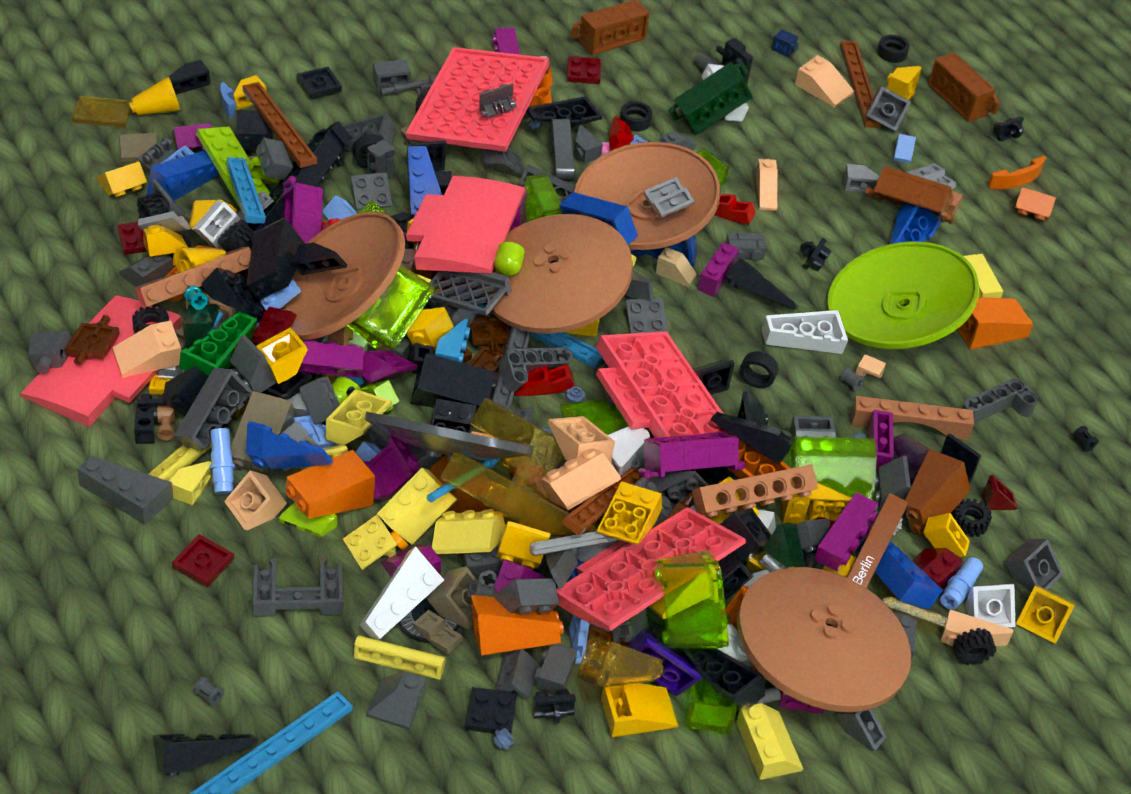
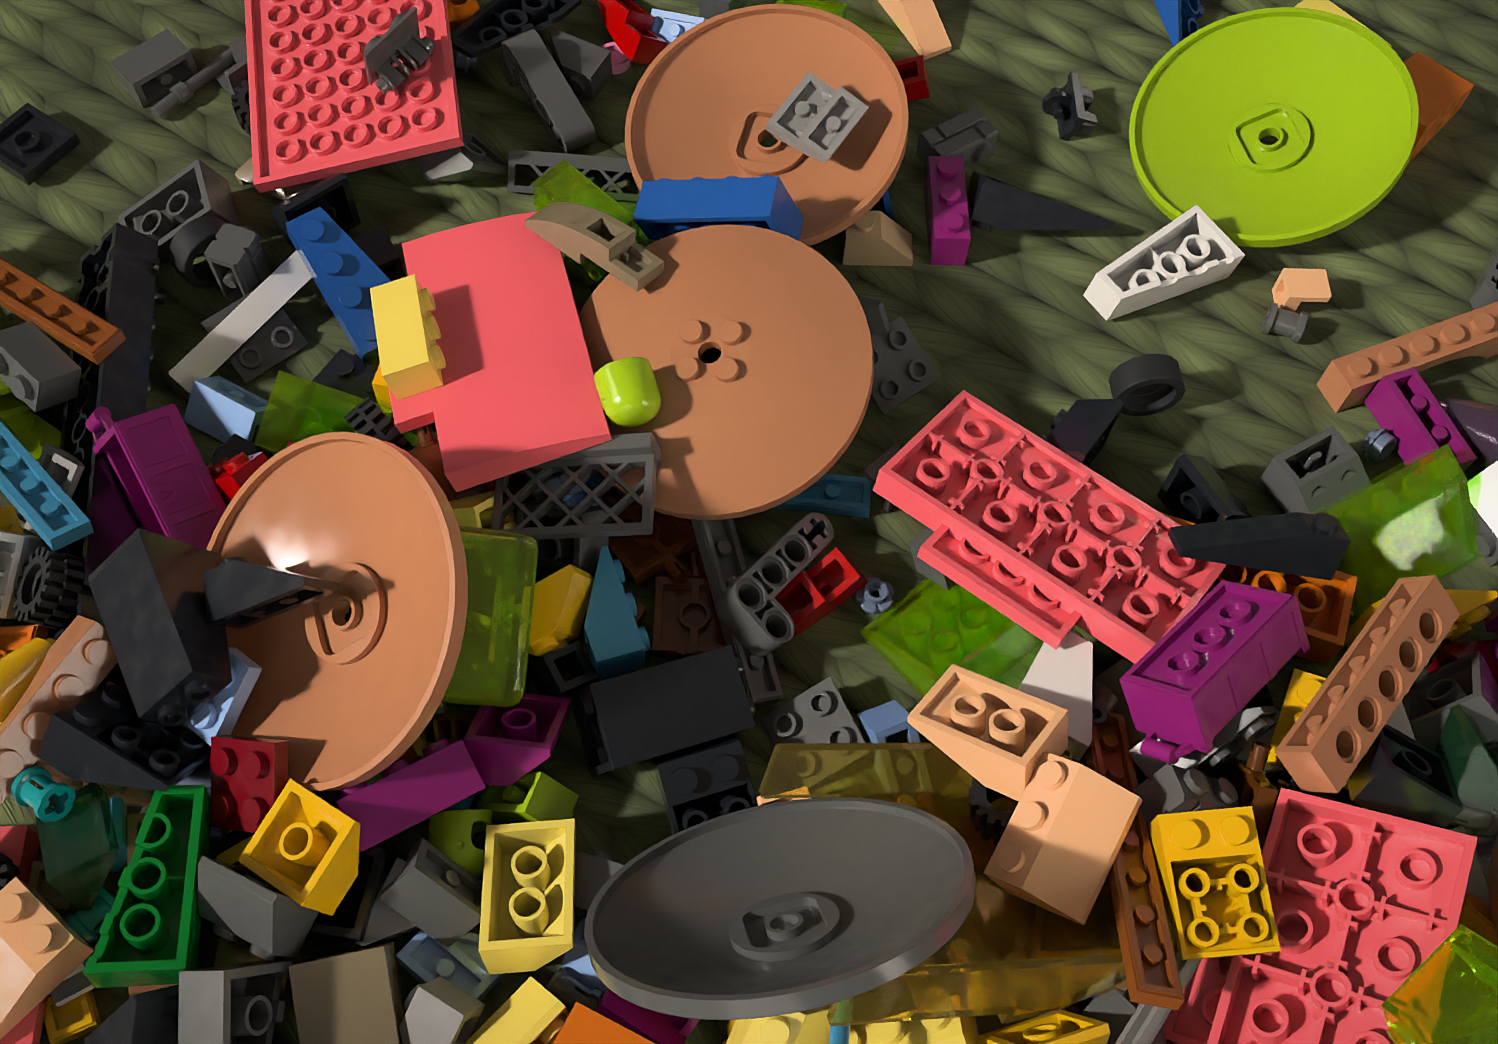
camera: 25 degrees left, 15 degrees up
(369, 182) = (242, 322): none -> white sticker
(430, 204) = (407, 337): none -> light yellow brick
(535, 201) = (596, 236): none -> dark tan slope

